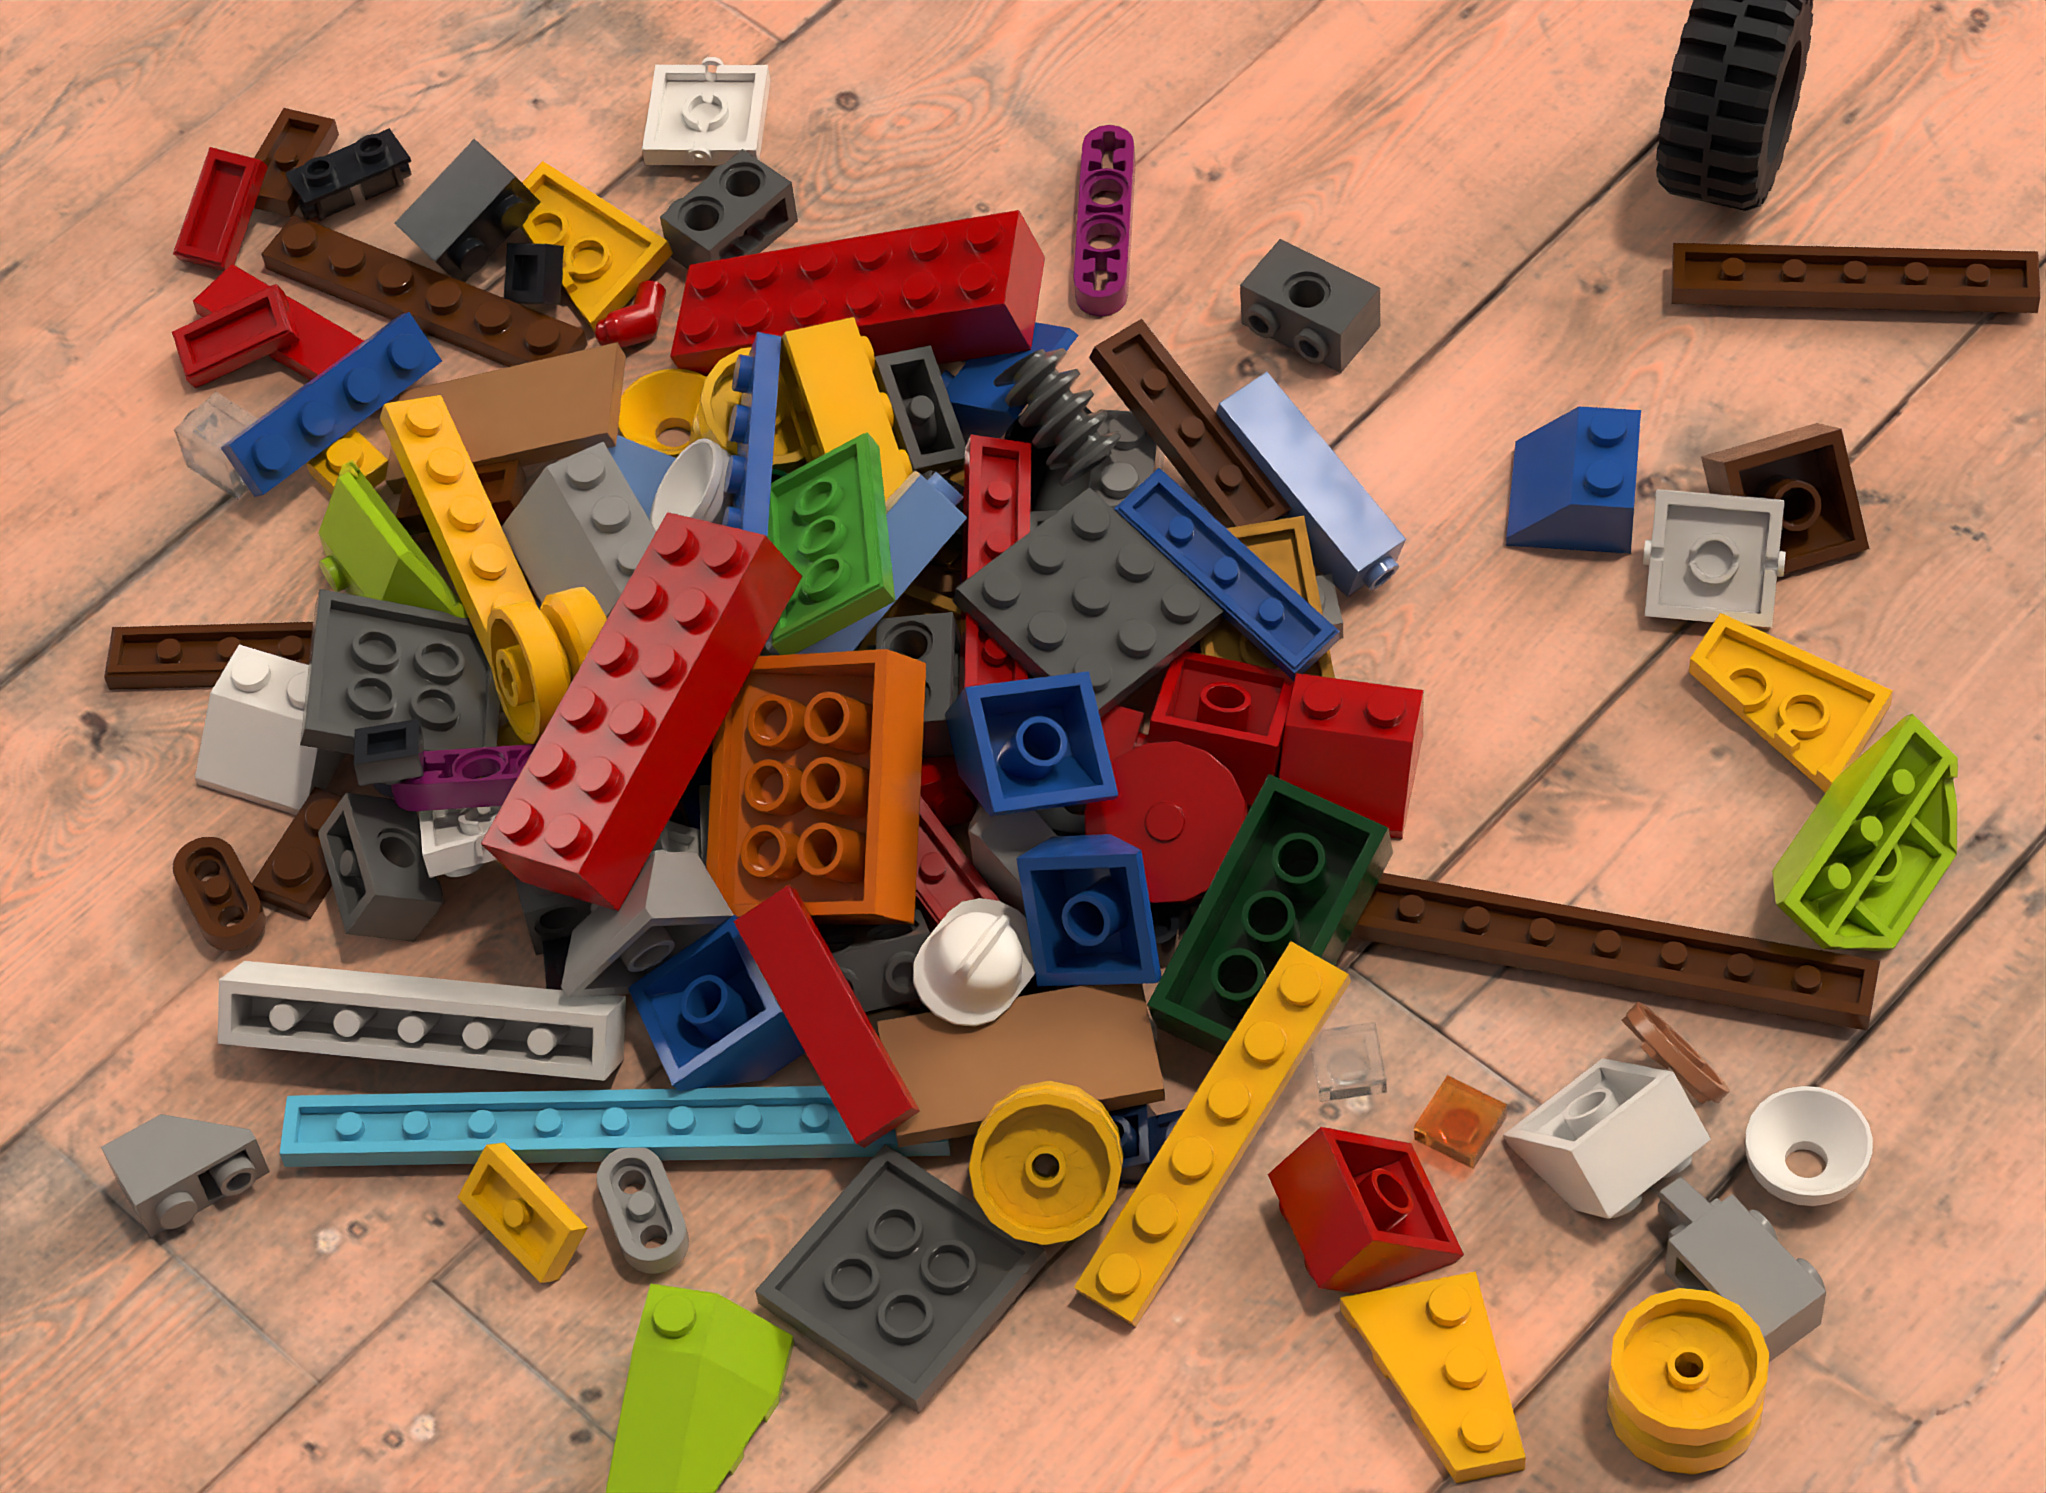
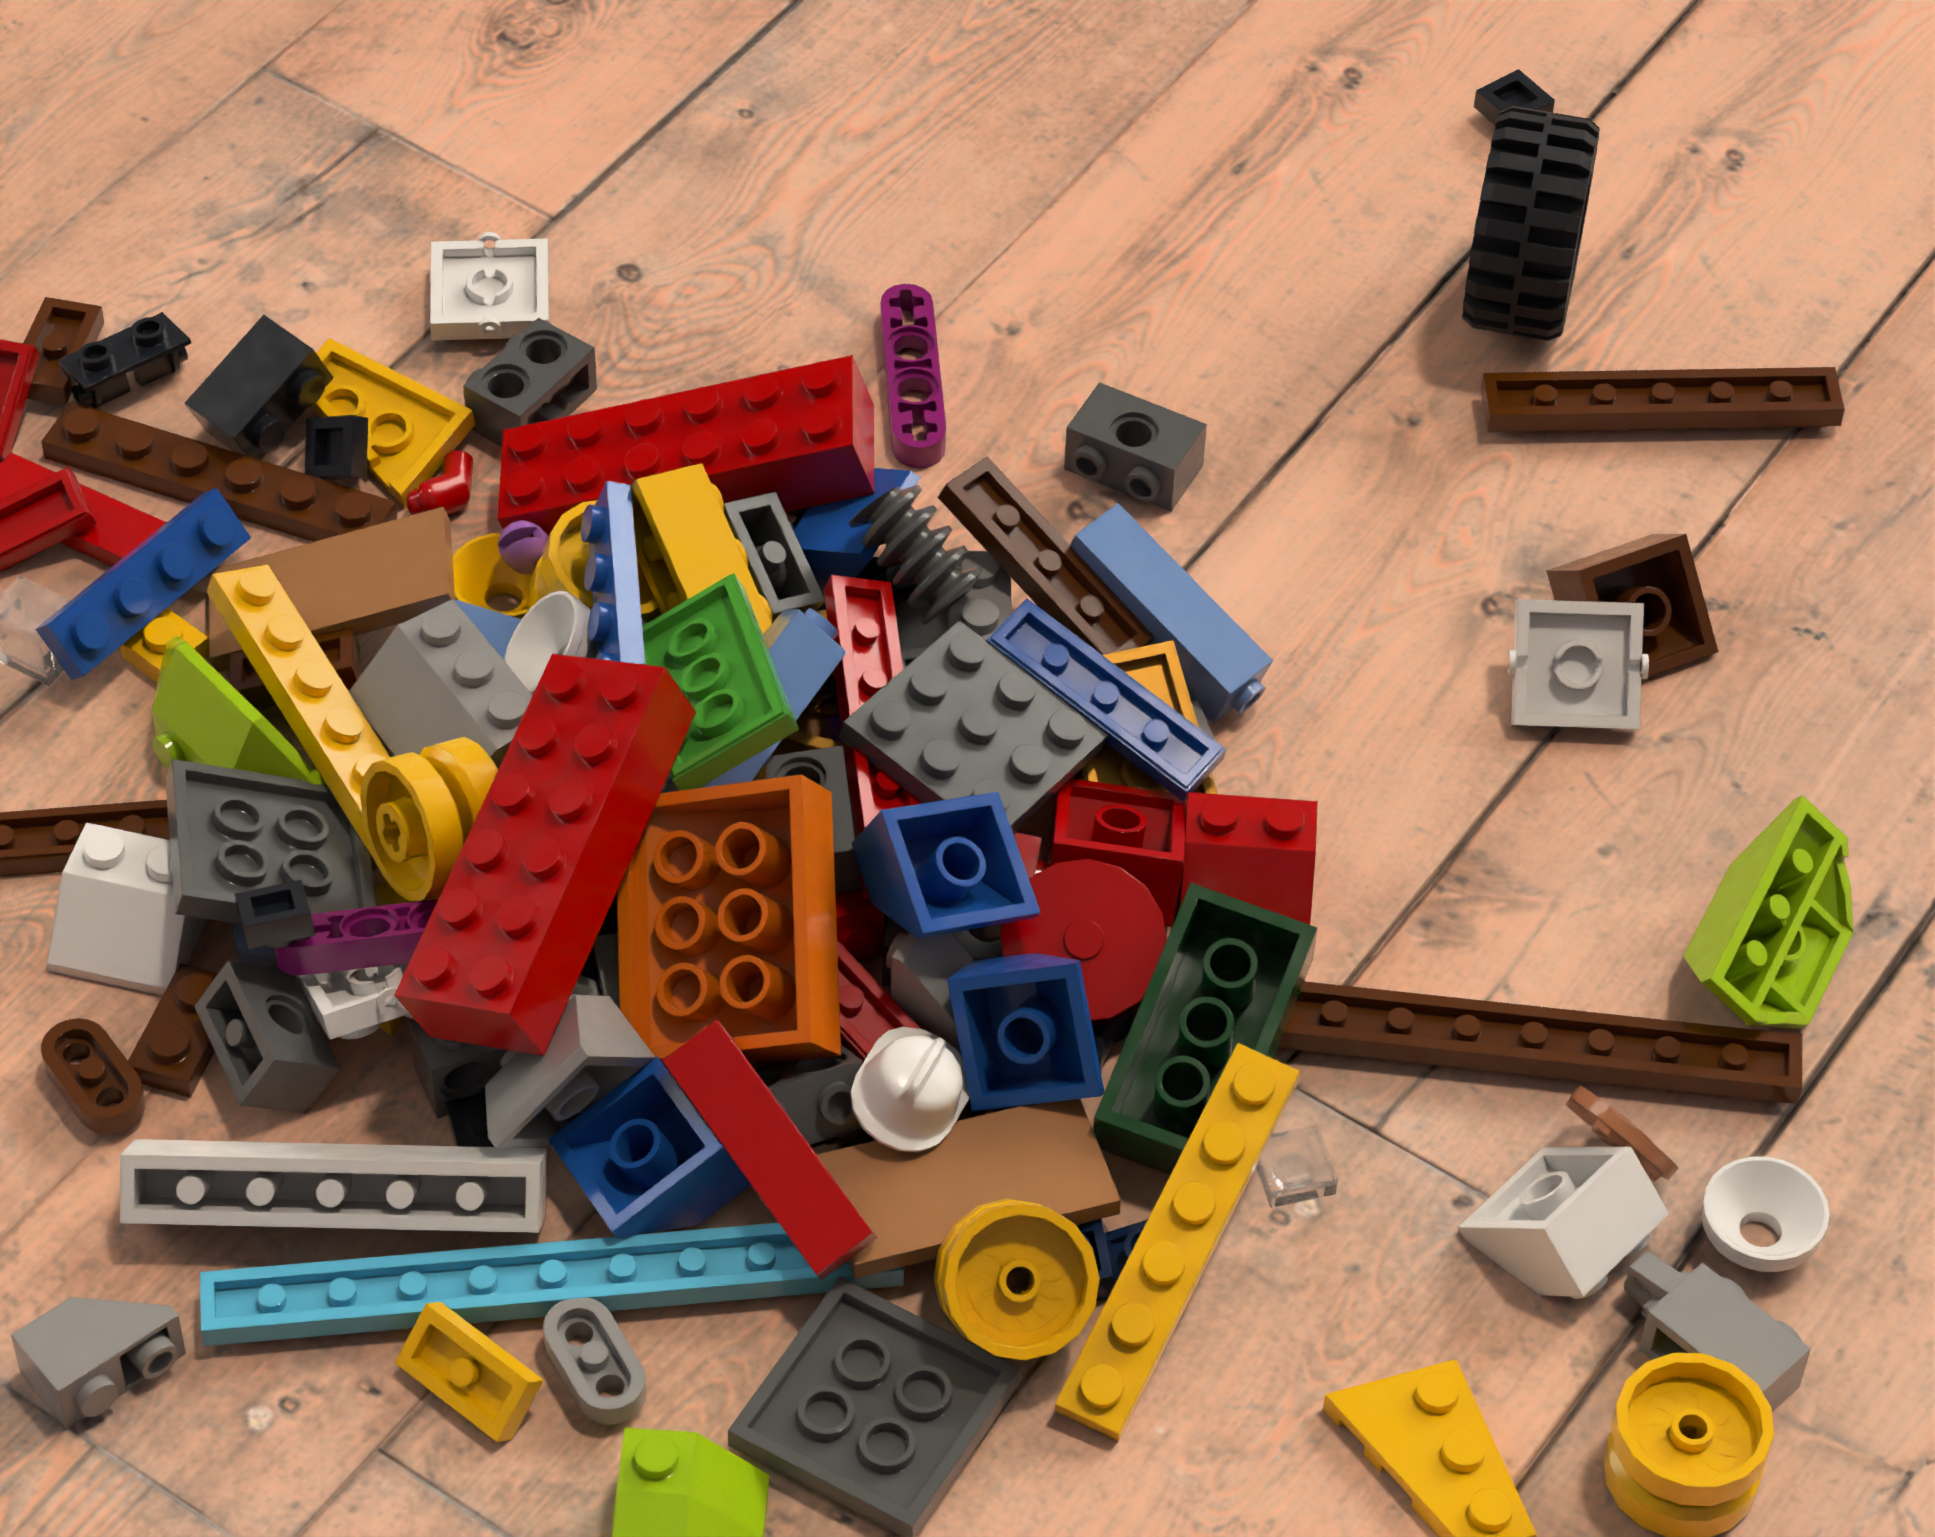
camera: 15 degrees left, 5 degrees down
(687, 391) = (522, 553): none -> medium lavender hinge
(1362, 1211) = (1333, 1309): red slope -> none
(1460, 1121) = (1416, 1216): clear orange plate -> none
(1576, 482) = (1428, 601): blue slope -> none
(1790, 697) = (1669, 793): yellow wing -> none

